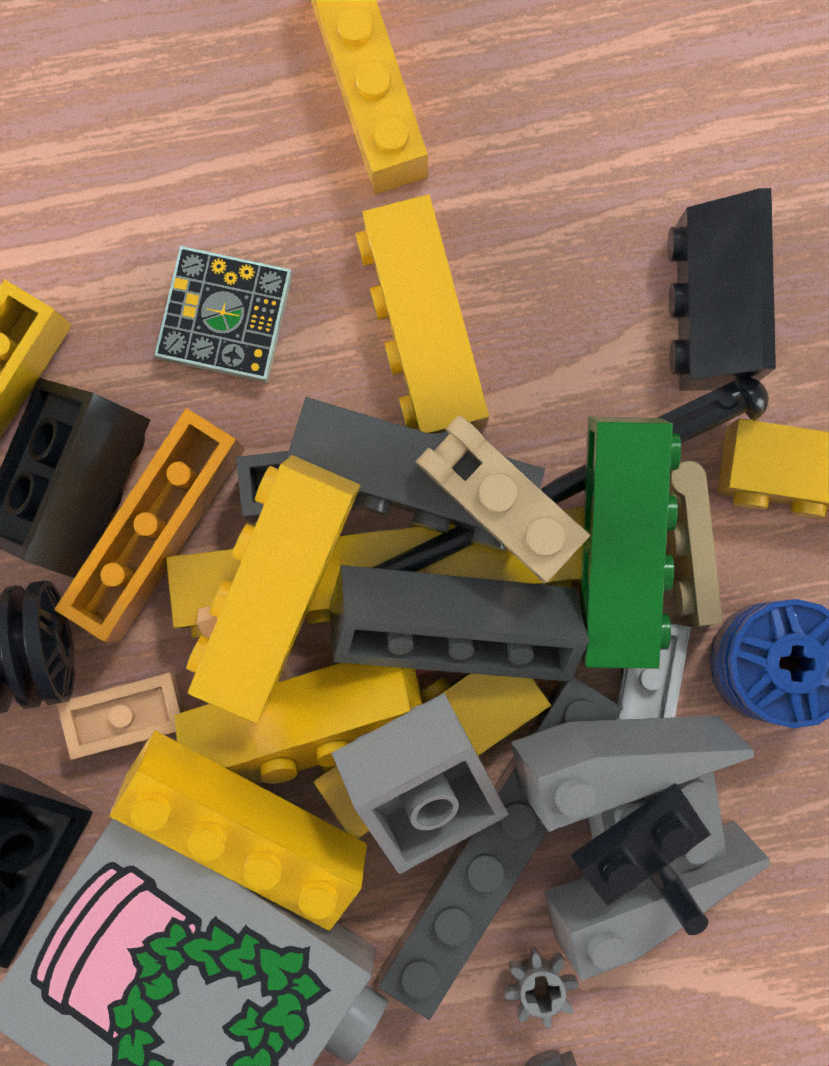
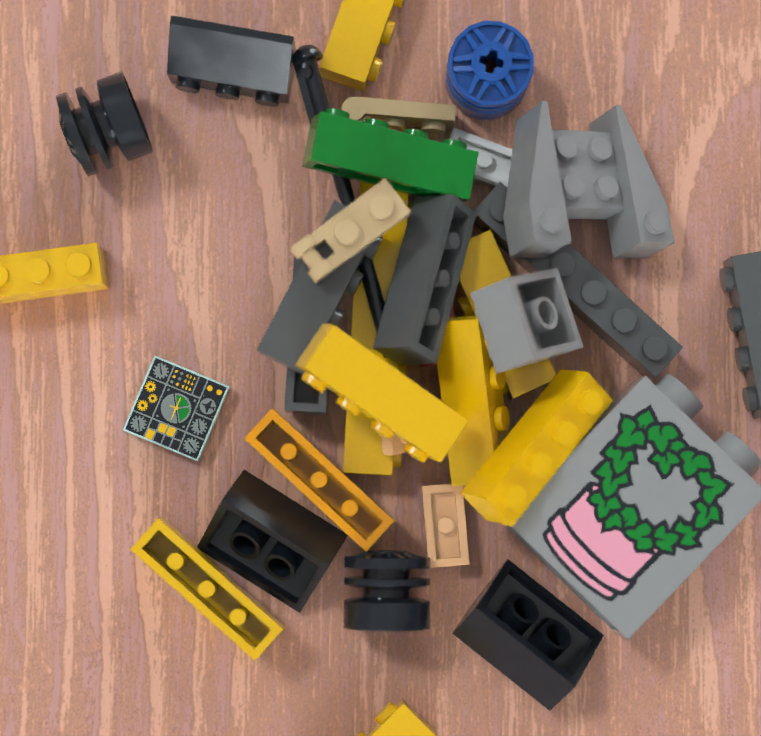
camera: 90 degrees left, 0 degrees up
(423, 316) = (208, 268): yellow brick -> none
(555, 999) = (684, 264): light grey gear -> none
(593, 127) = (103, 124): none -> black wheel
(642, 849) = (594, 184): black plate -> none

